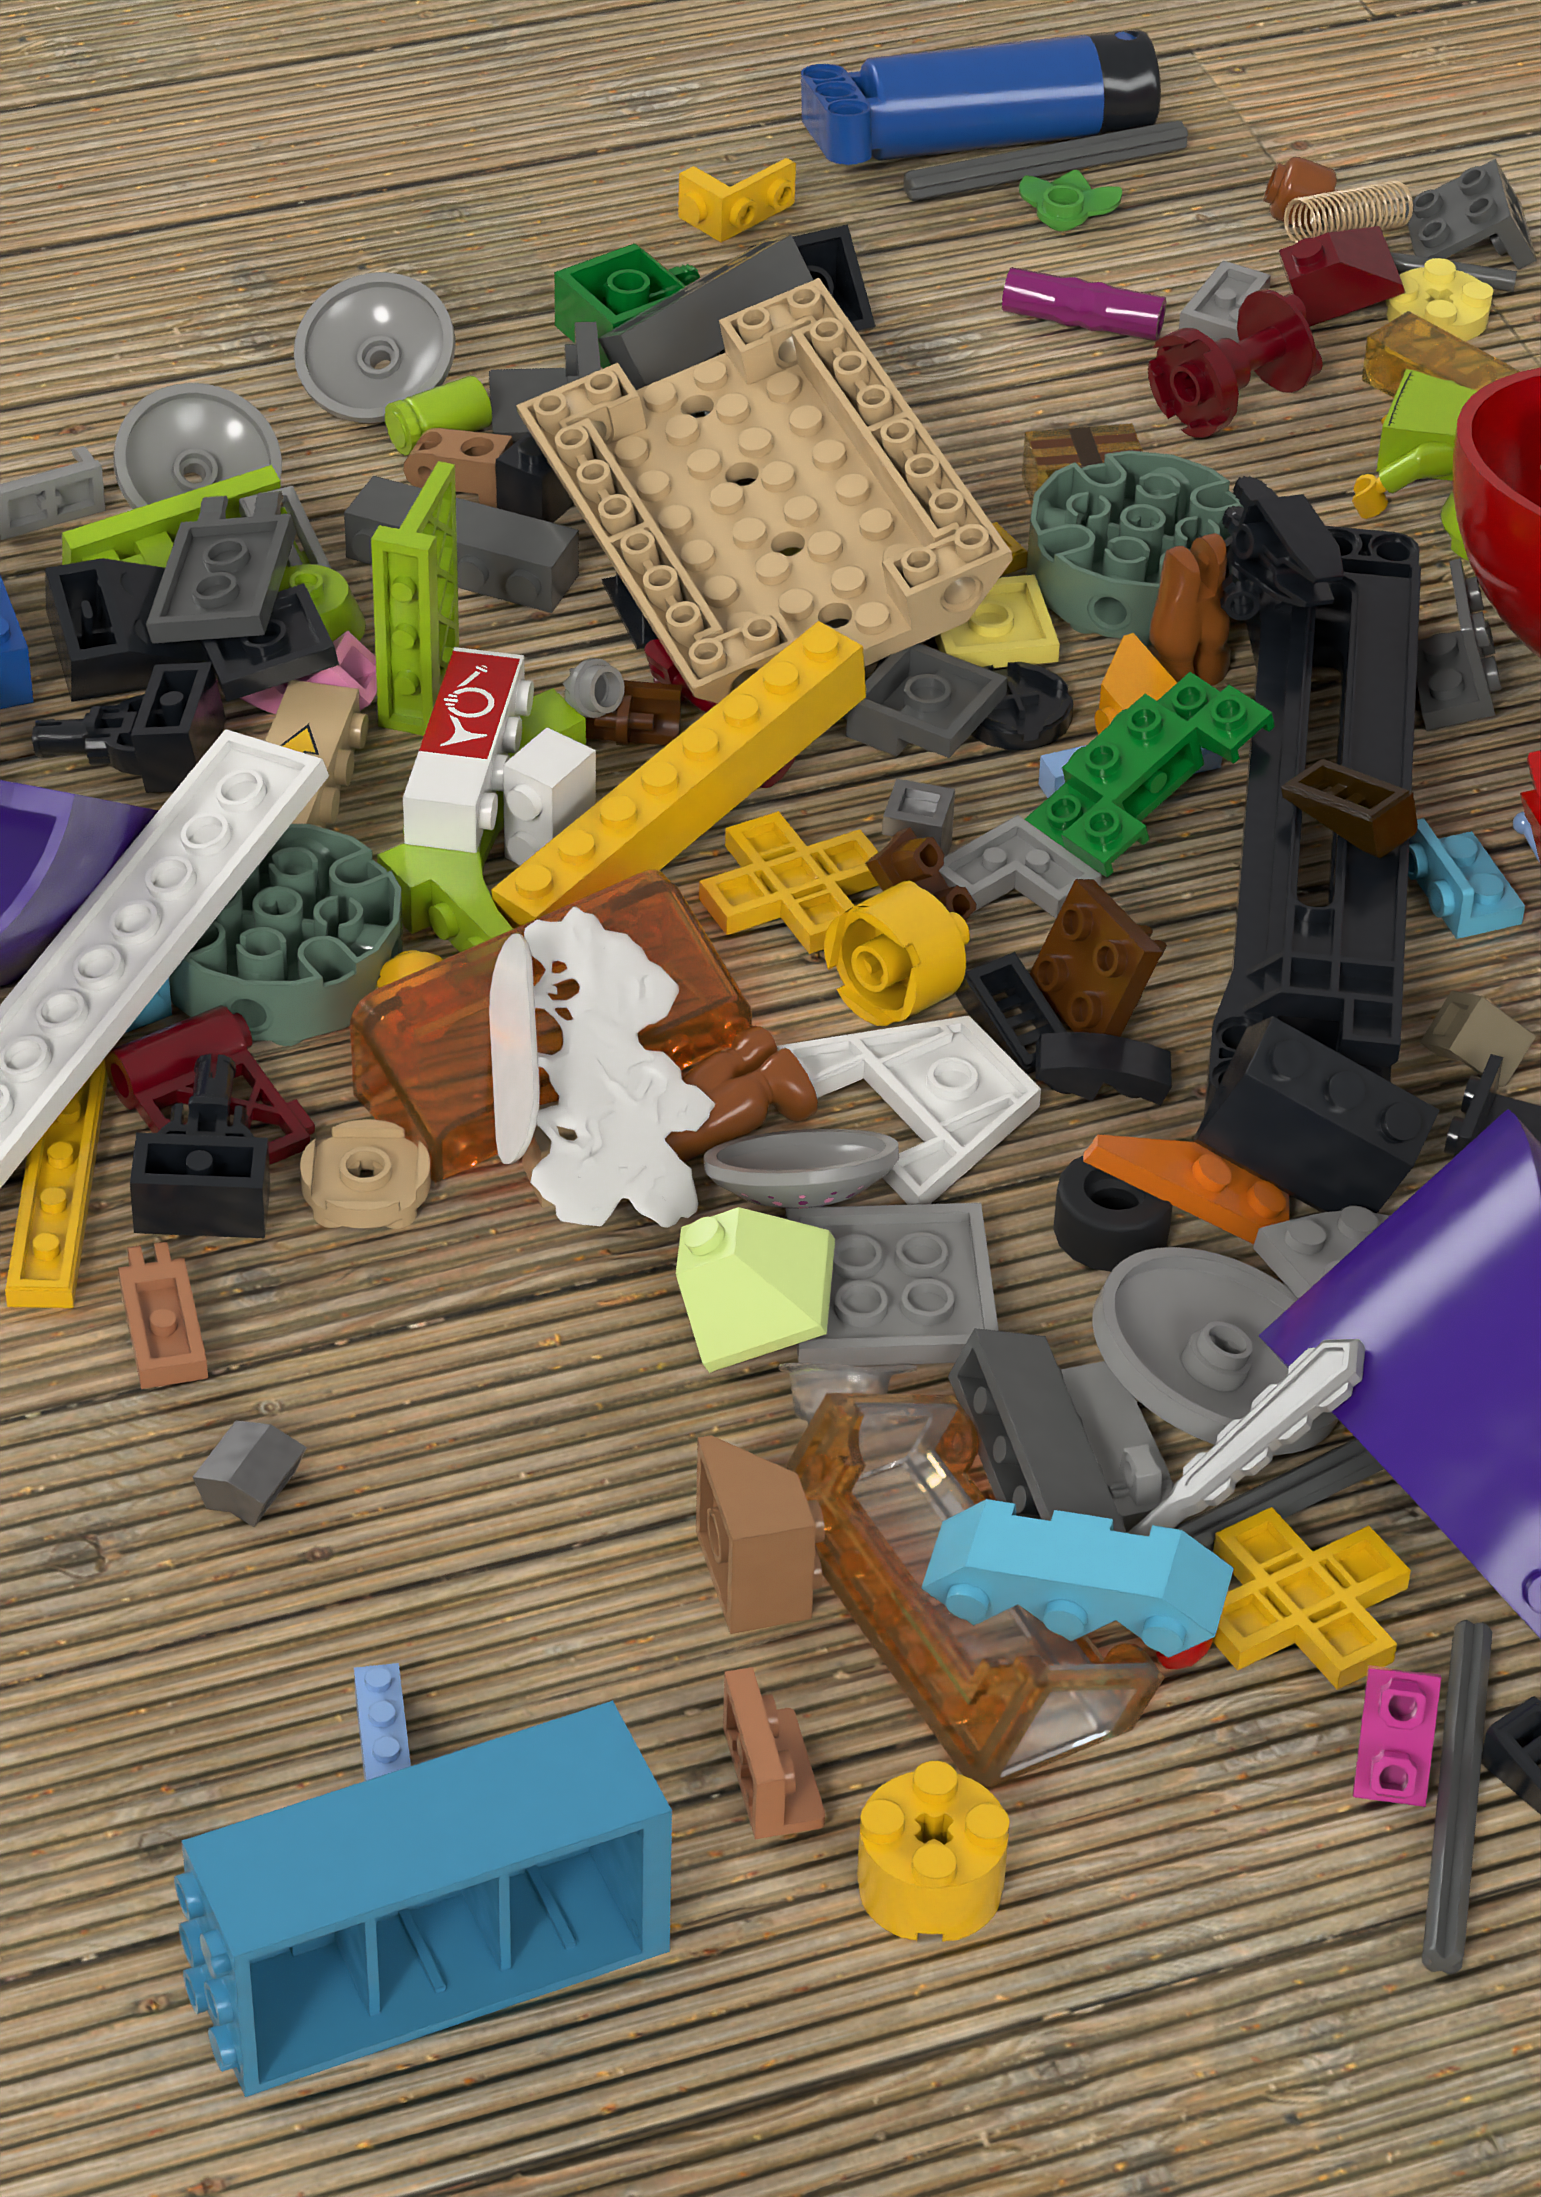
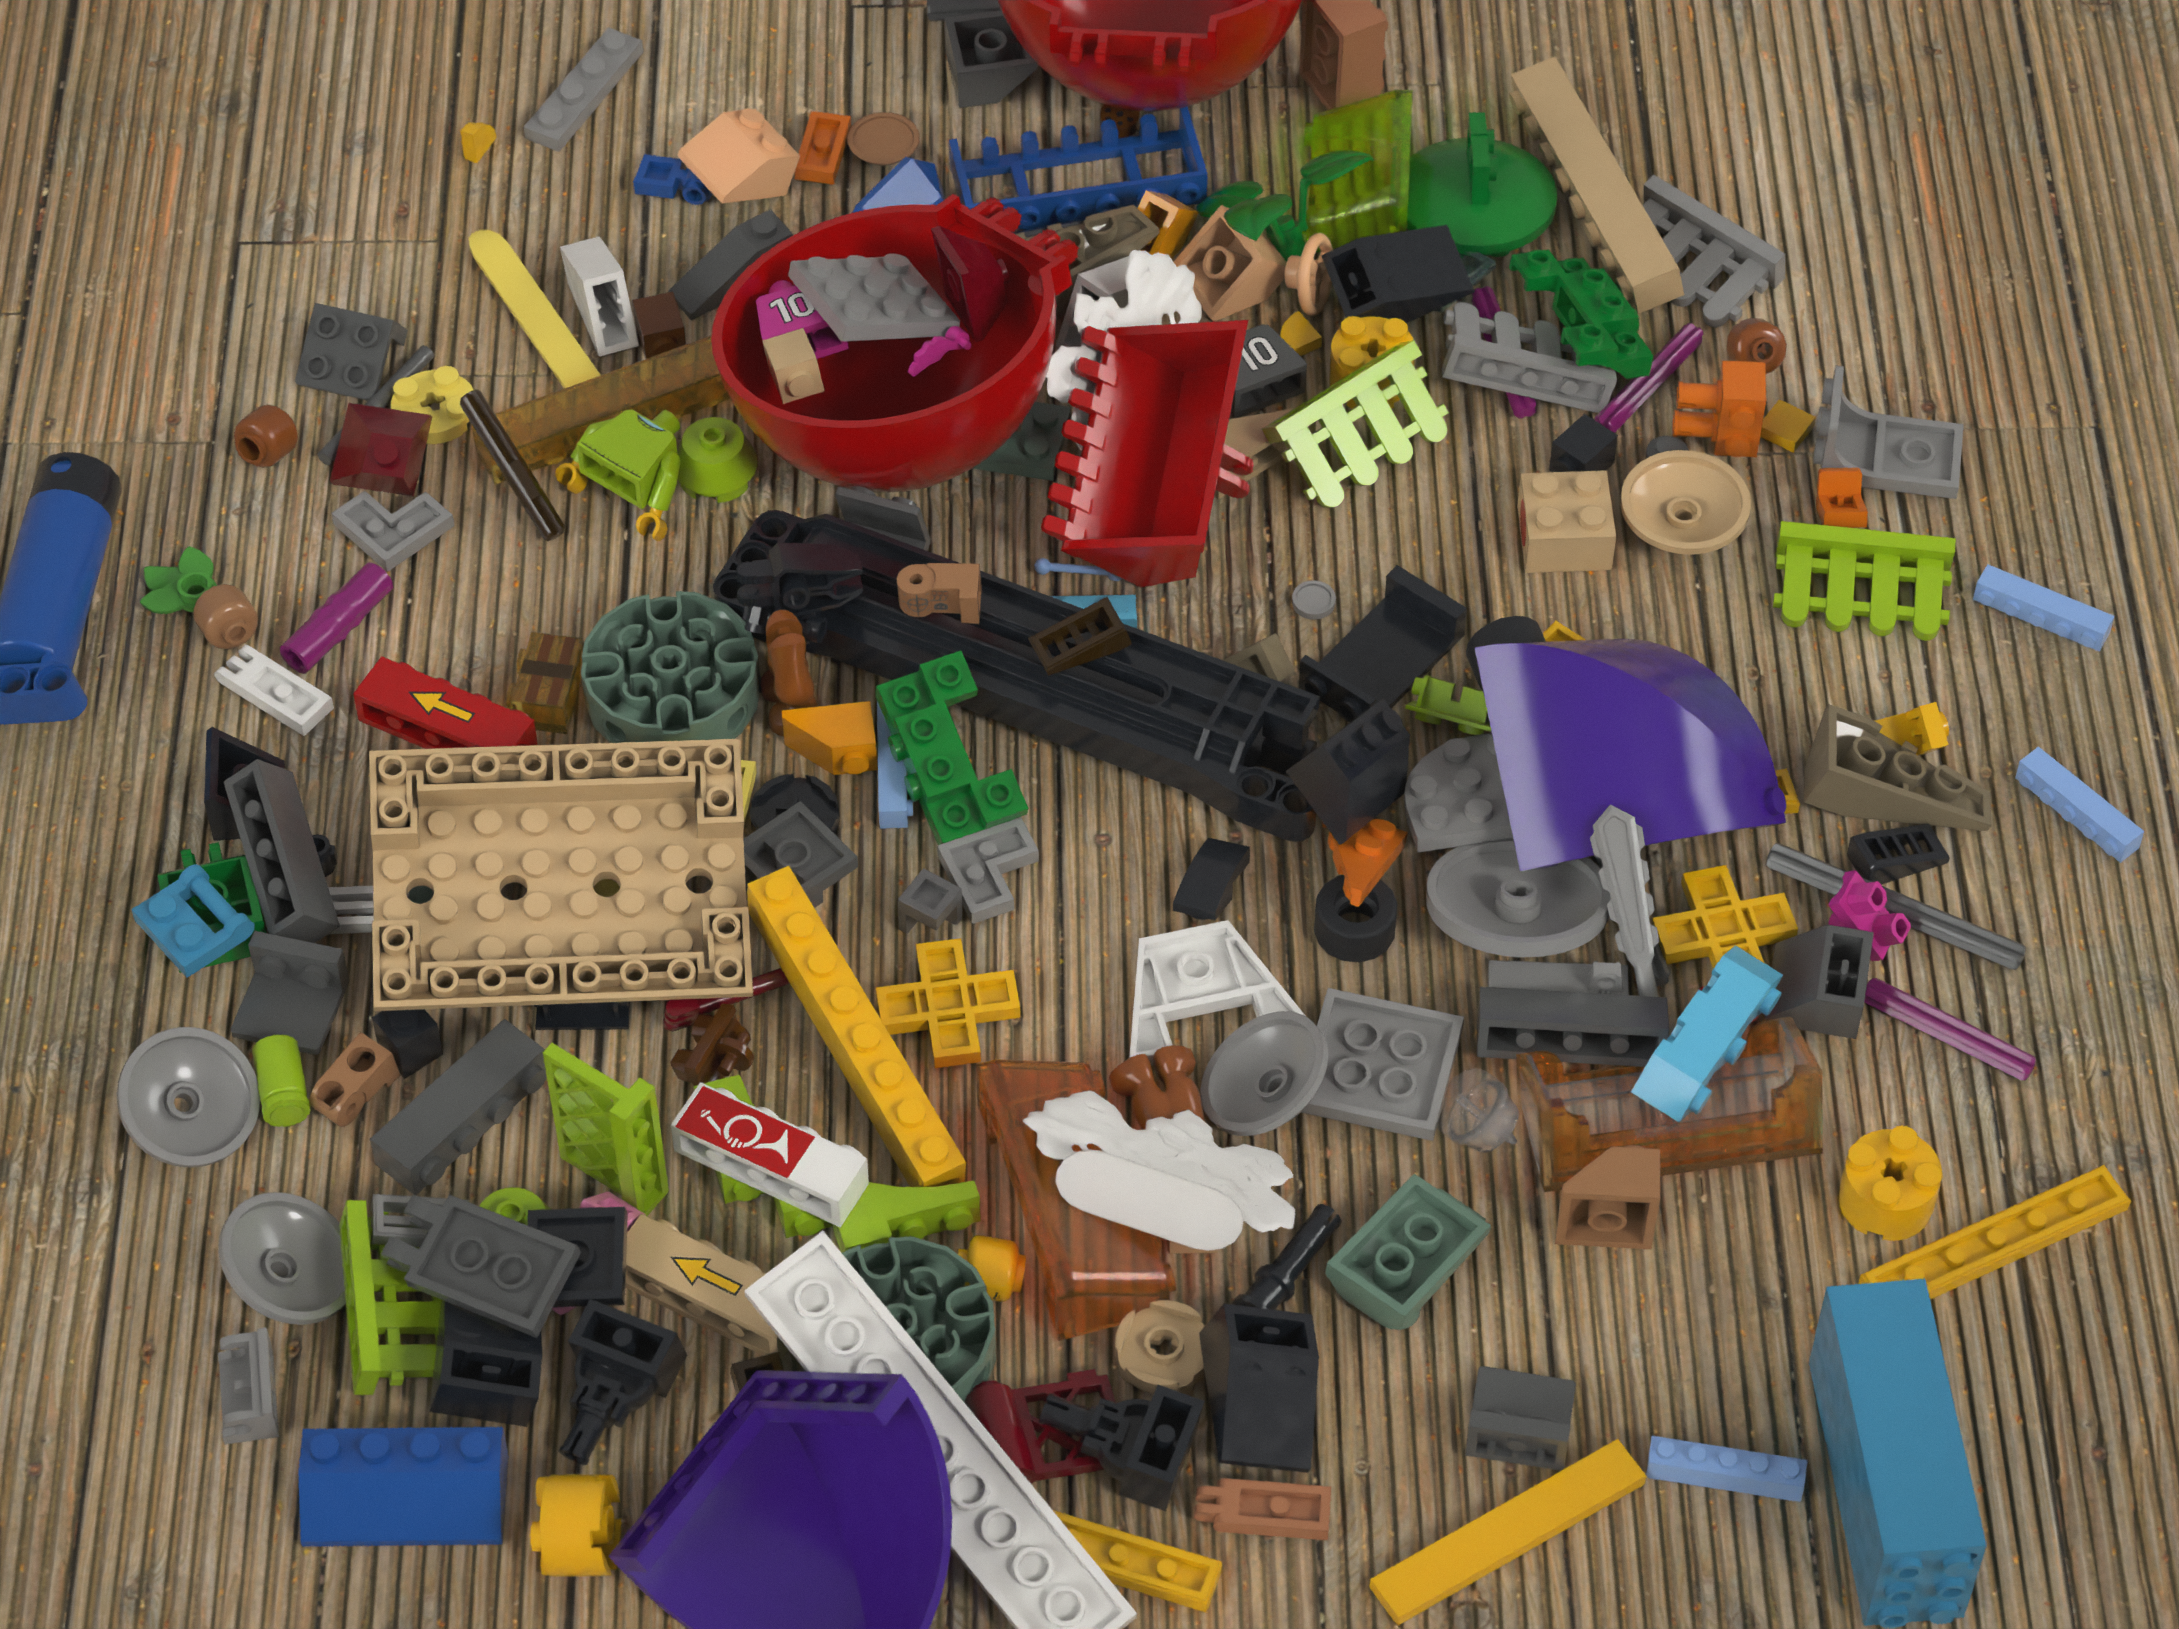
camera: 70 degrees left, 10 degrees up
(215, 1562) = (1507, 1532): none -> yellow tile
(248, 1470) = (1440, 1485): flat silver piece -> none
(317, 1253) = (1261, 1386): none -> black slope
(385, 1532) = (1520, 1418): none -> dark grey bracket
(503, 1255) = (1276, 1281): none -> black pin
(545, 791) = (832, 1110): white brick -> none
(564, 267) = (181, 931): none -> dark azure plate
(594, 688) = (720, 1057): light grey plate -> none
(601, 1361) = (1405, 1253): none -> sand green slope
(731, 210) = (84, 816): yellow bracket -> none
(753, 1284) = (1378, 1134): yellowish green slope -> none
(769, 1760) = (1789, 1252): nougat bracket -> none
(897, 954) = (1074, 957): yellow brick -> none
(910, 2023) = (2008, 1234): none -> yellow tile
(919, 861) = (1005, 926): reddish brown hips -> none
(958, 291) = (275, 690): none -> white hinge
(991, 407) = (436, 712): none -> red brick
(1008, 976) = (1108, 927): black slope -> none
(1035, 229) = (223, 614): none -> medium nougat head
(1045, 160) = (121, 584): dark grey axle -> none
(1095, 961) = (1133, 847): reddish brown plate -> none
(1203, 377) = (493, 570): dark red piece -> none
(1257, 1723) = (1823, 979): none -> dark grey slope
(1262, 1897) = (1949, 1029): none -> magenta axle
(1346, 664) = (941, 590): none -> medium nougat leg
(1348, 193) = (314, 417): tan piece -> none
(1363, 352) = (512, 465): none -> dark brown axle

